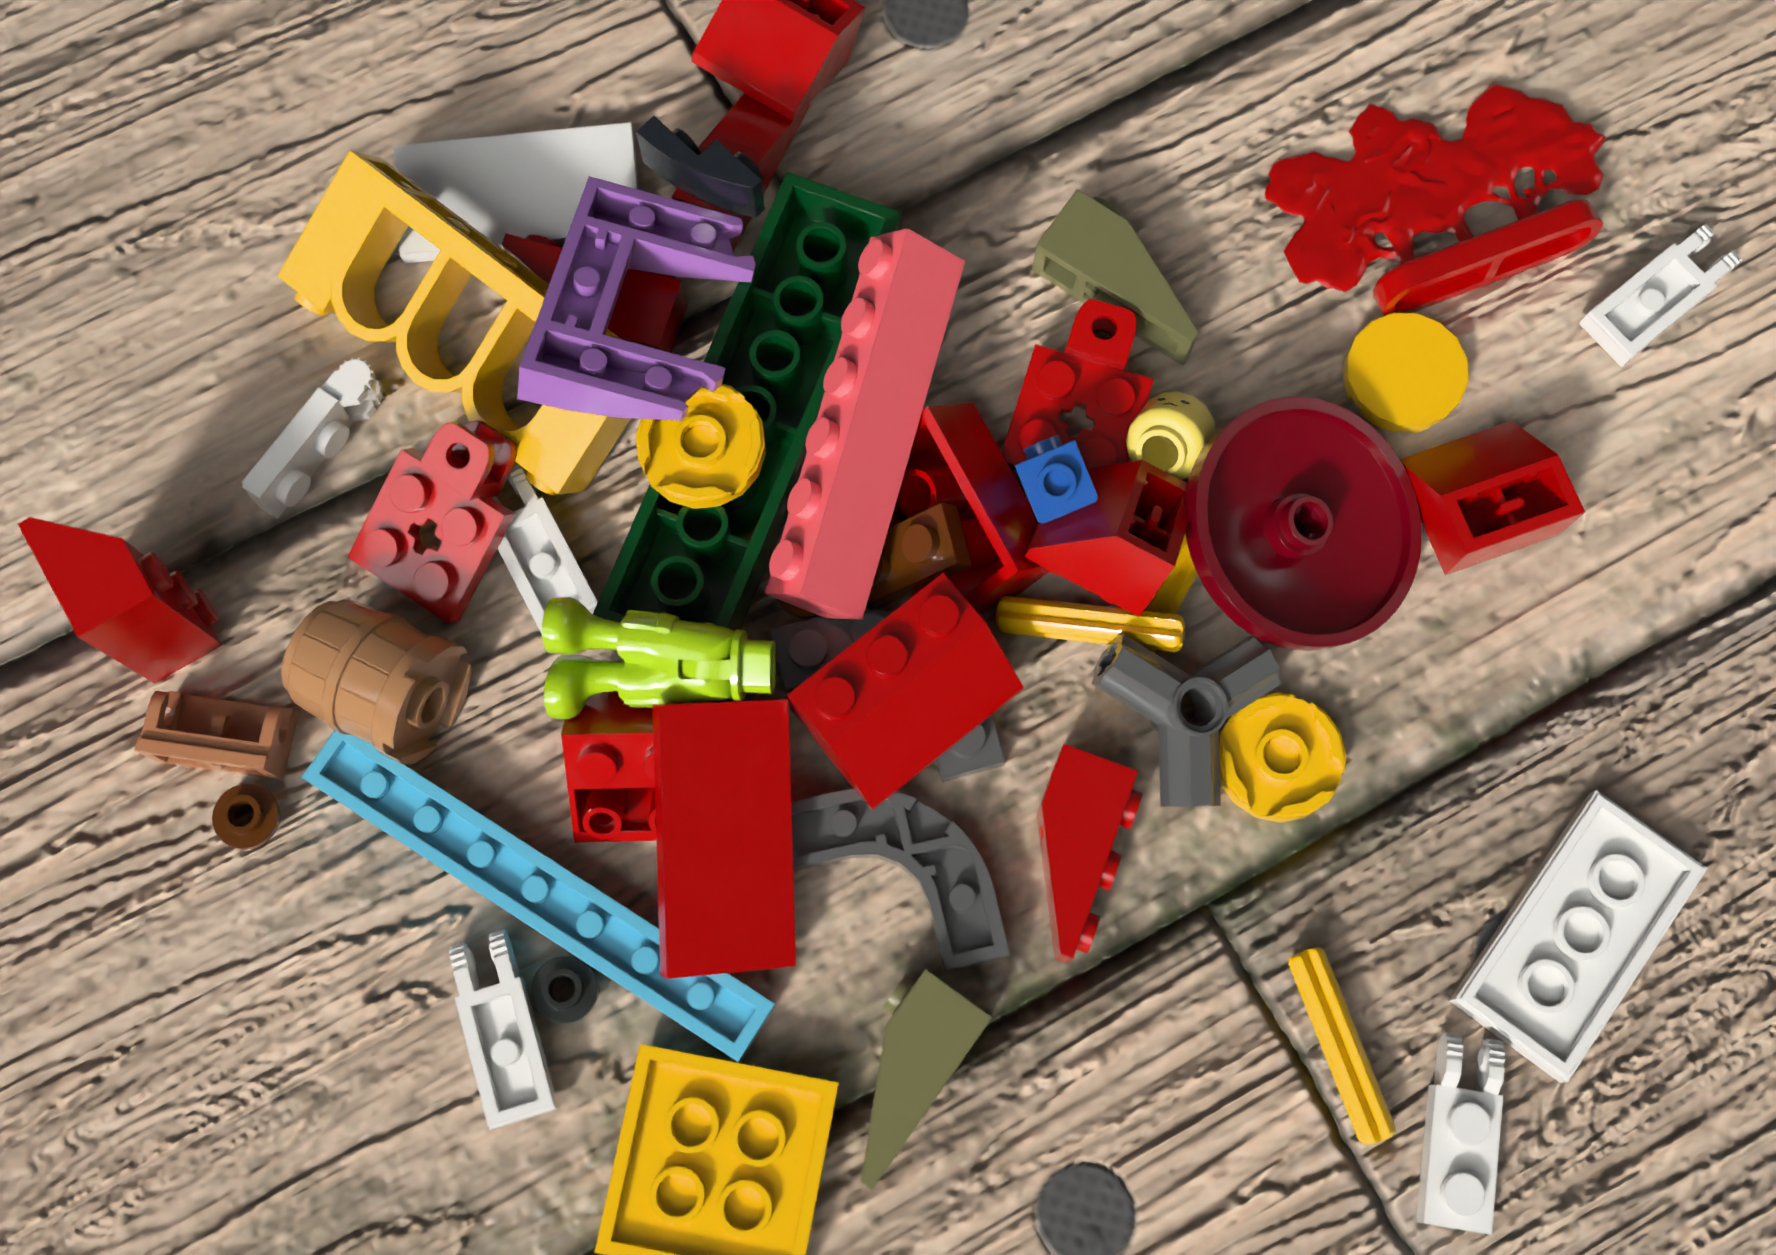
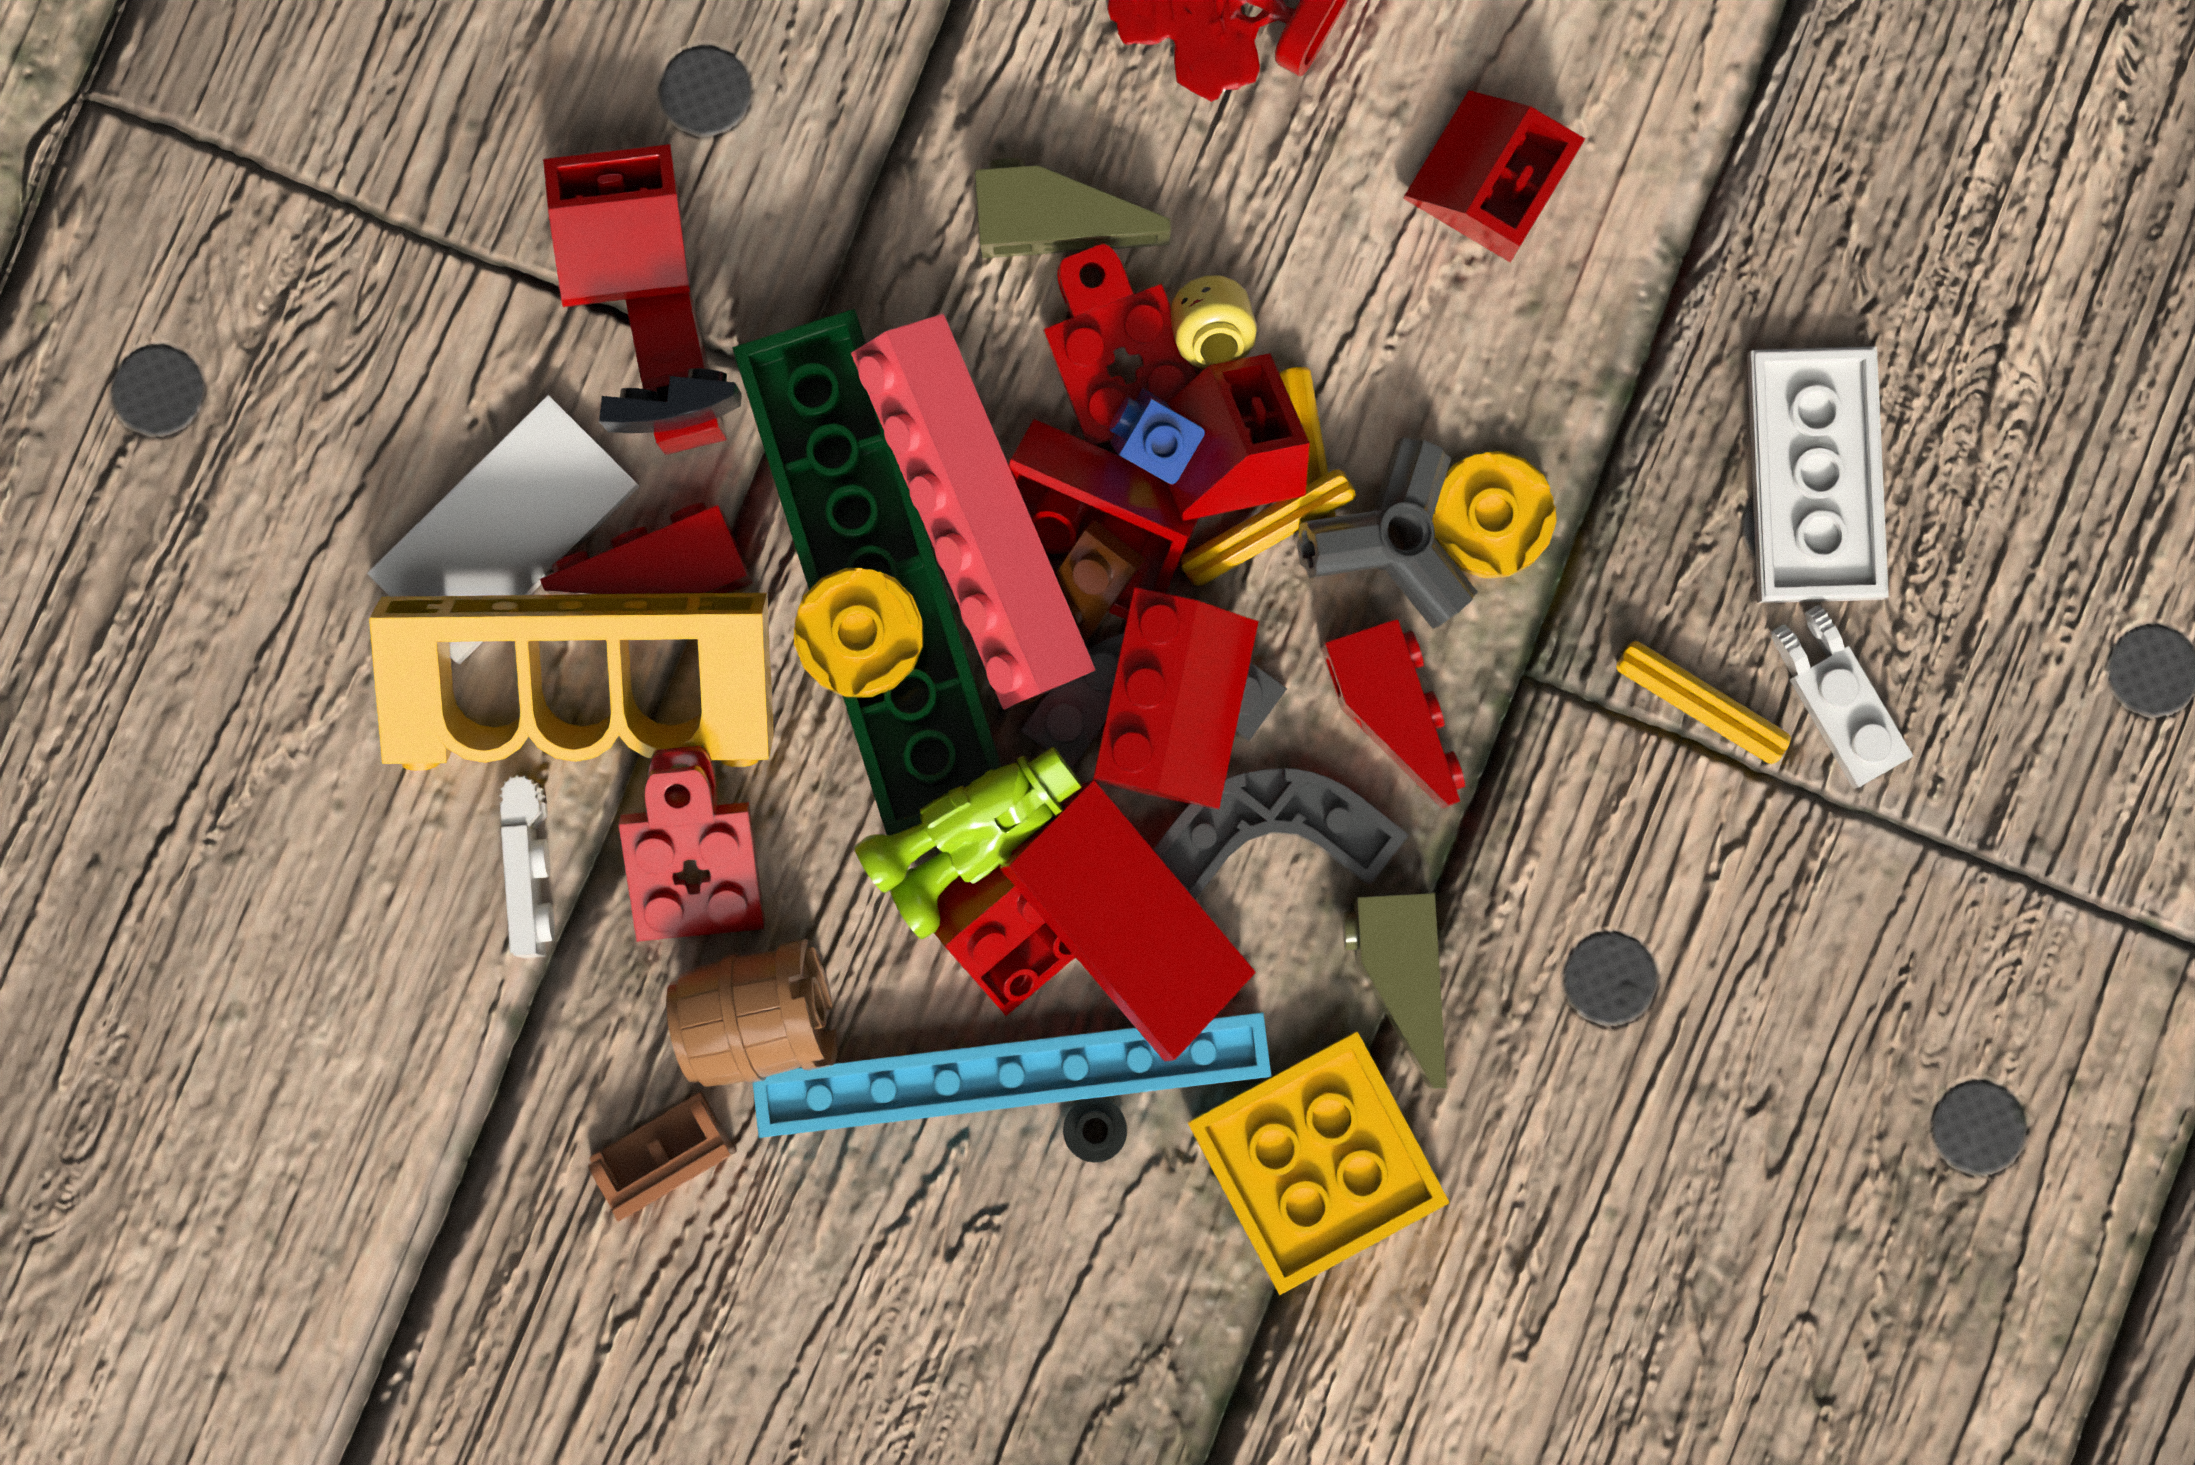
camera: 40 degrees left, 10 degrees up
(123, 599) = (514, 1115): red slope -> none
(262, 826) = (758, 1195): reddish brown plate -> none
(502, 1037) = (1079, 1201): white hinge -> none
(539, 554) = (799, 821): white hinge -> none
(571, 357) = (707, 650): medium lavender wedge -> none
(1303, 524) = (1372, 314): dark red dish -> none
(1405, 372) = (1353, 112): yellow tile -> none

